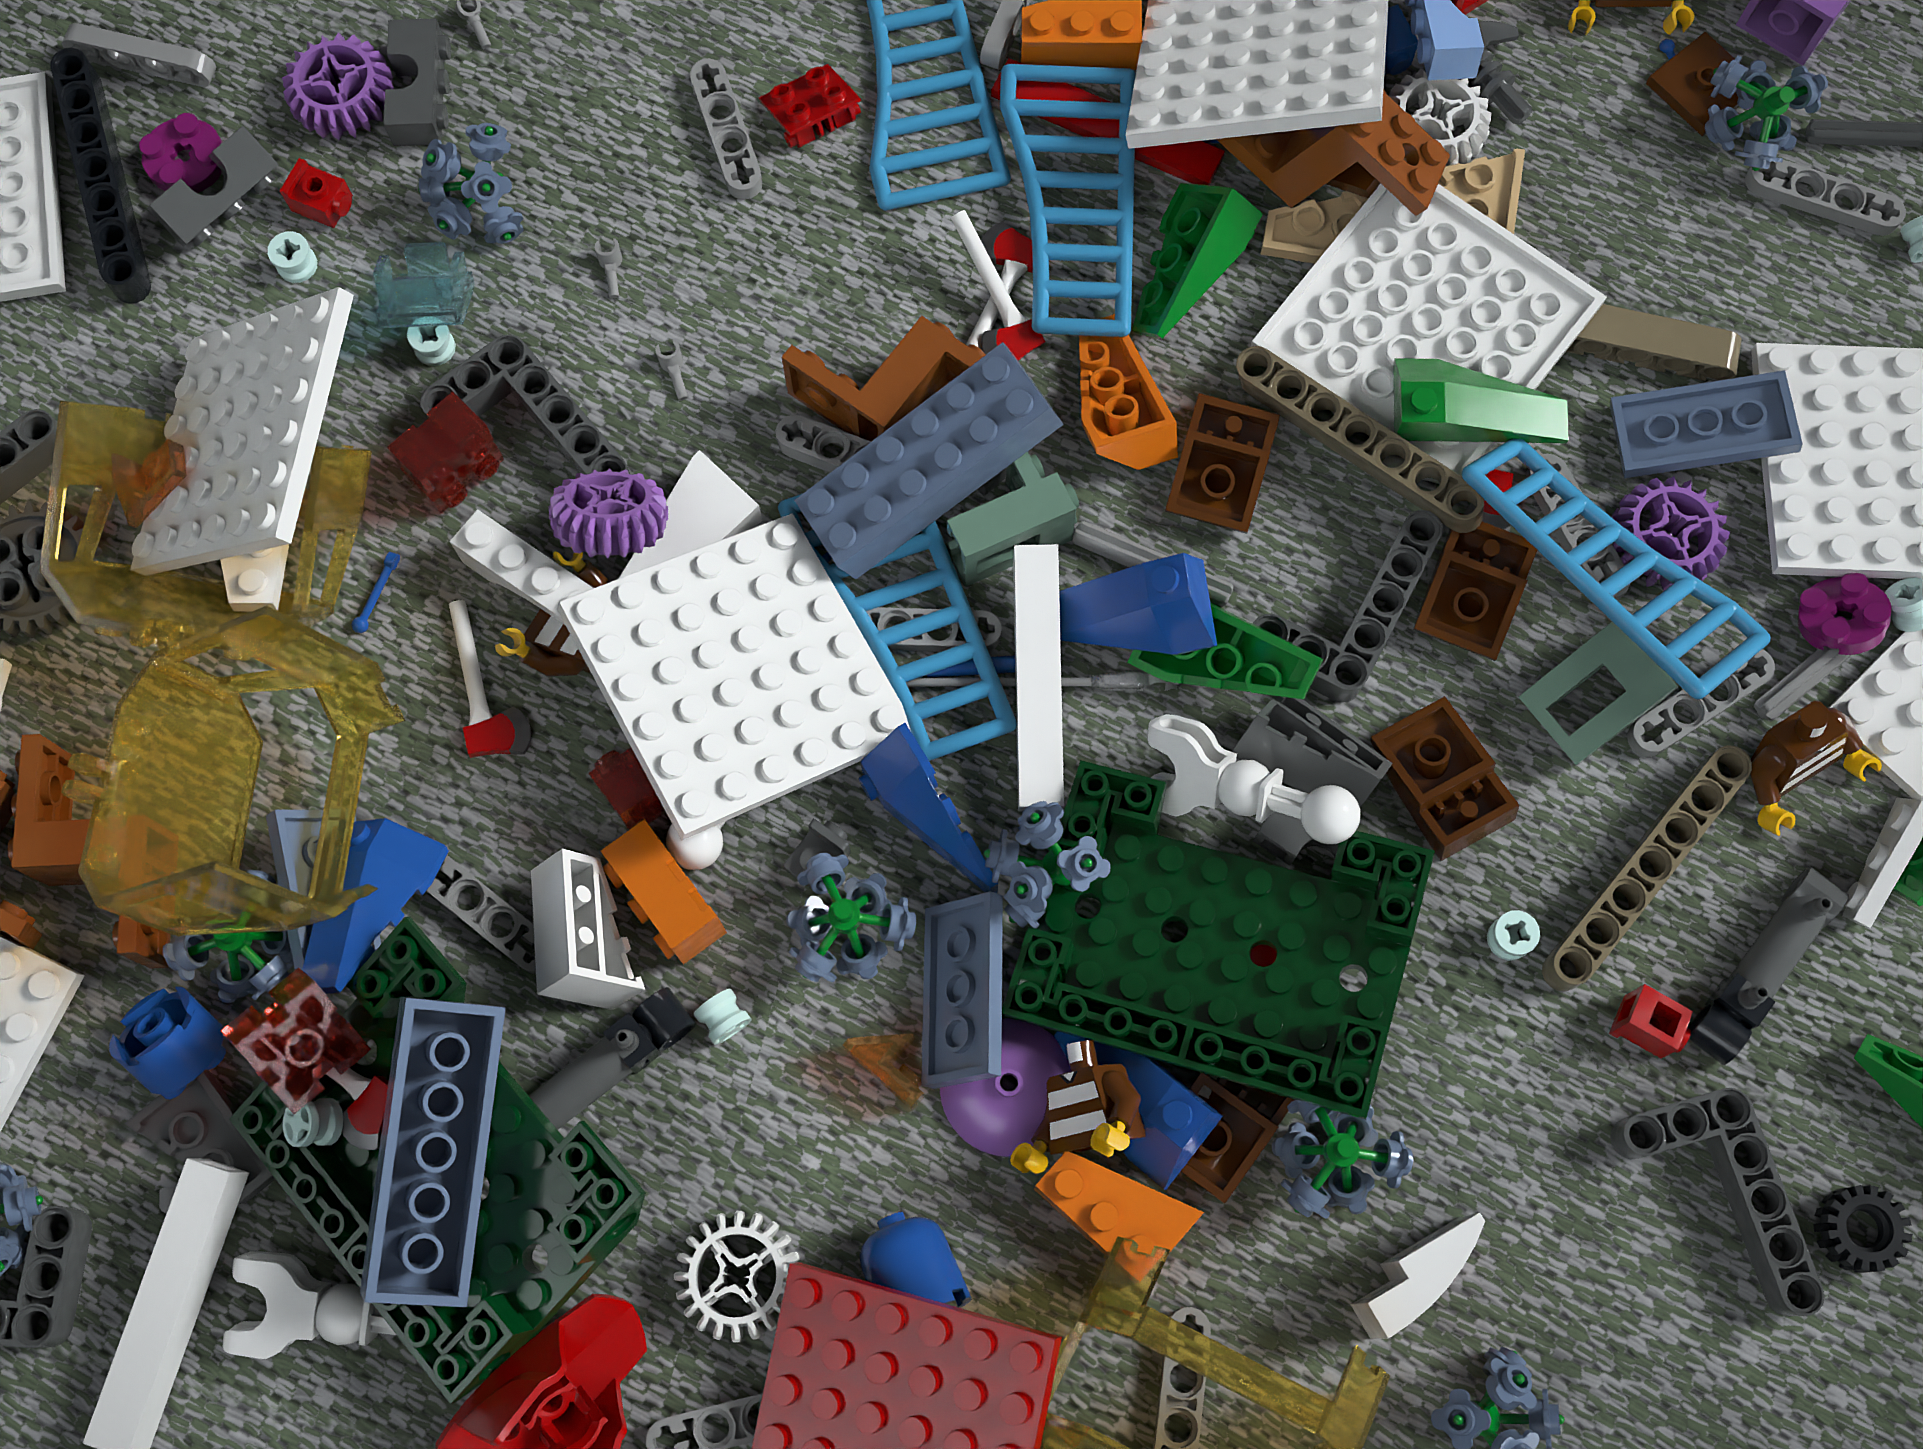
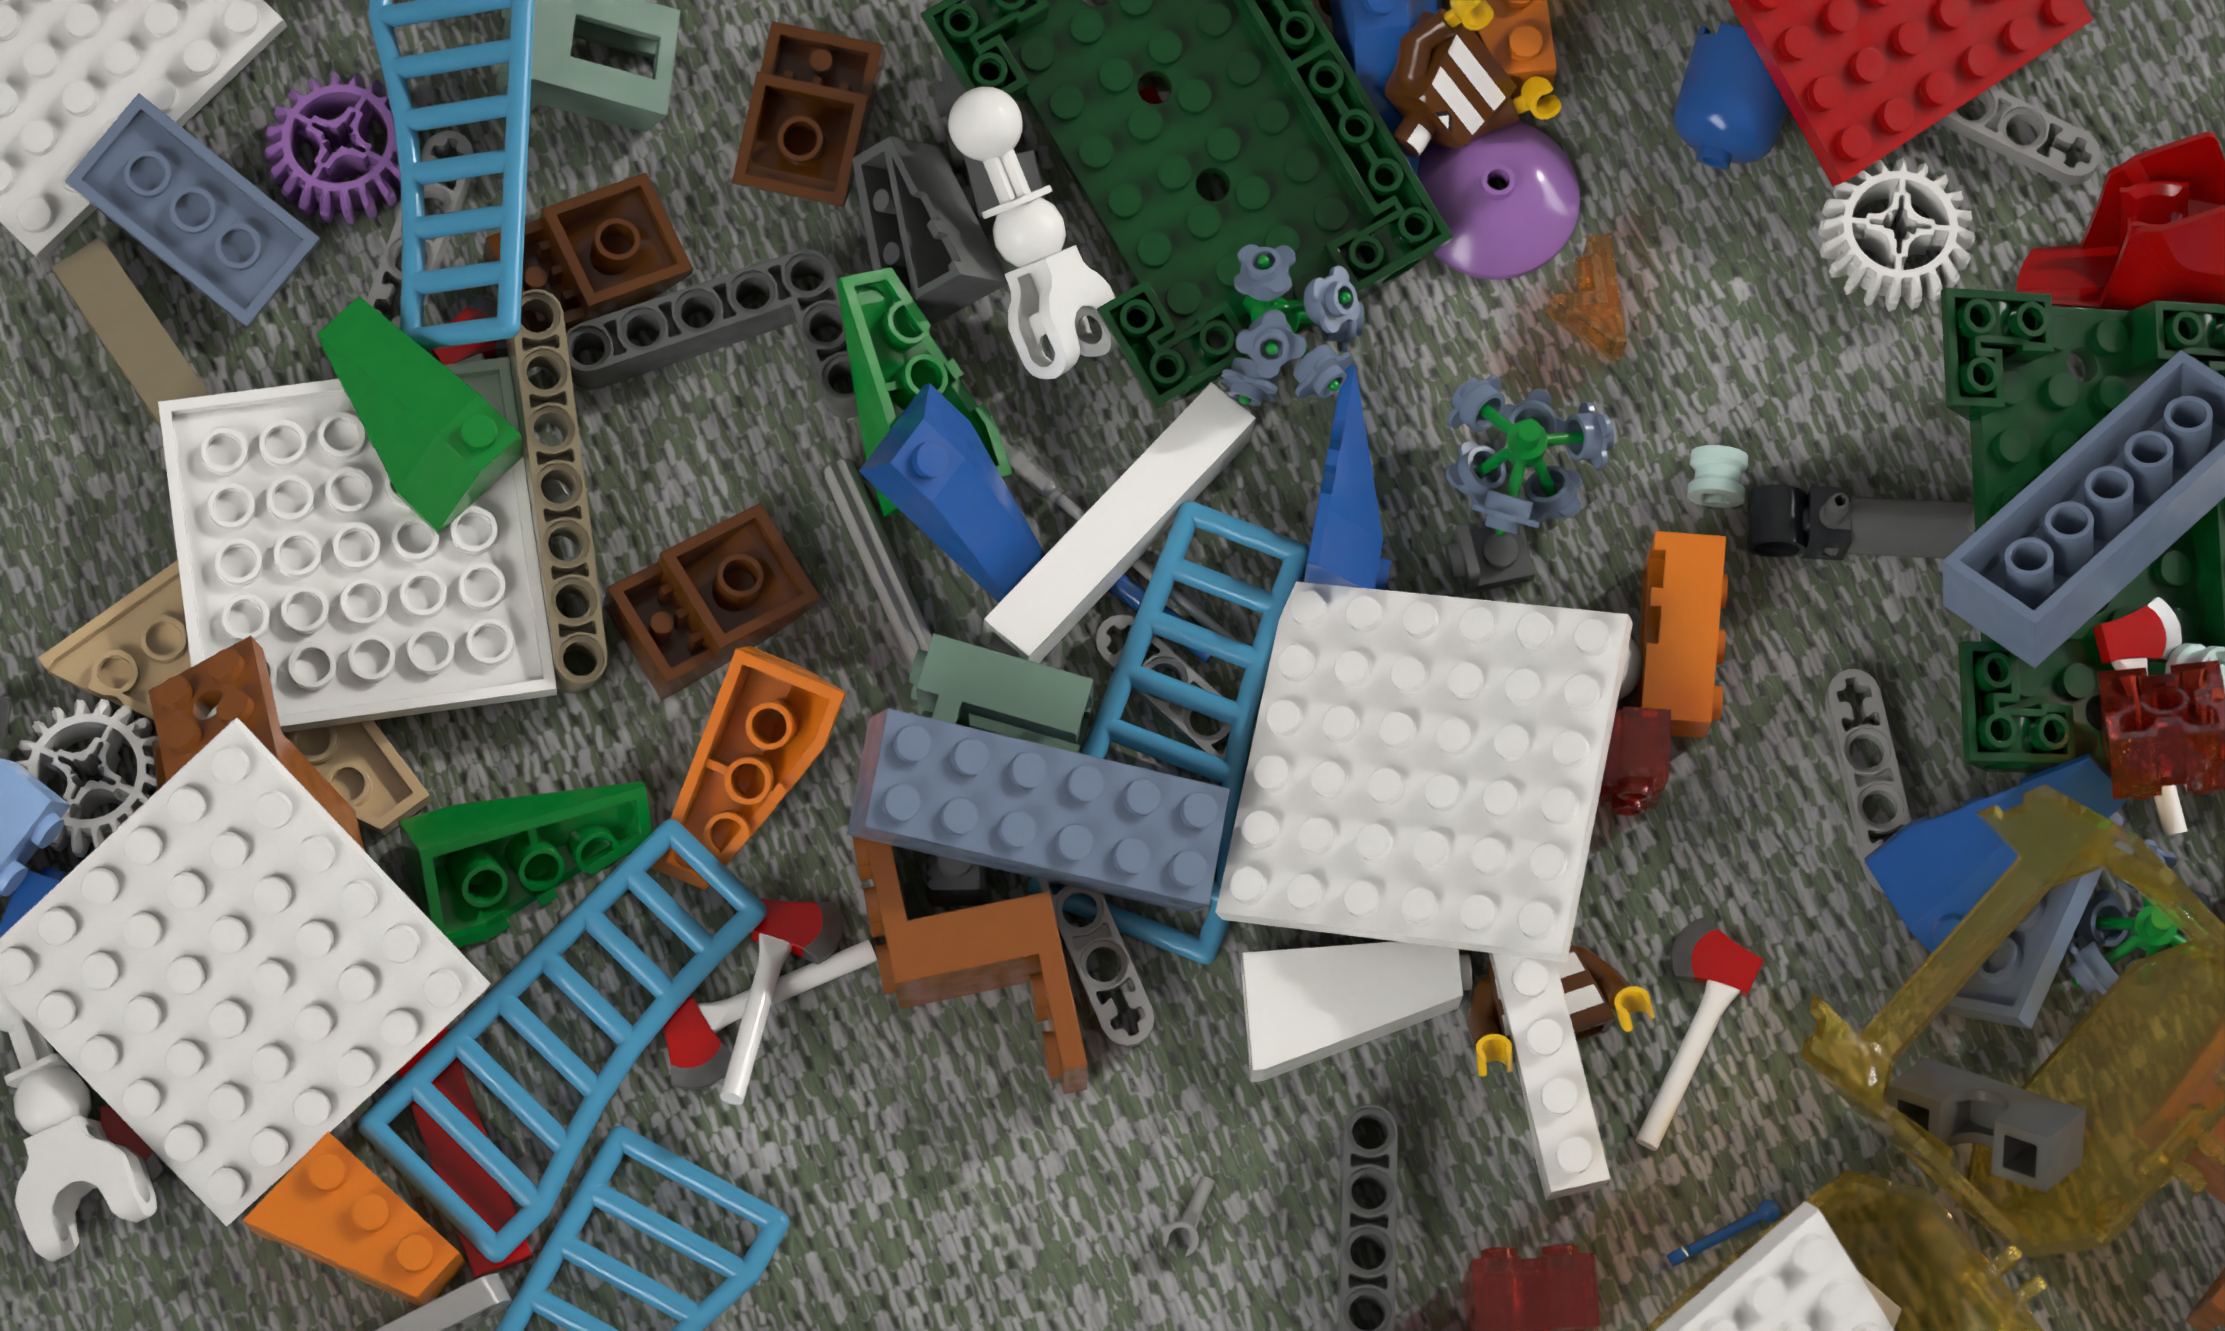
camera: 140 degrees left, 0 degrees up
(288, 738) = (2031, 1135): none -> dark grey arch
(576, 934) = (1799, 664): white wedge -> none
(608, 513) = (1428, 1097): medium lavender gear -> none
(962, 991) = (1468, 295): sand blue plate -> none

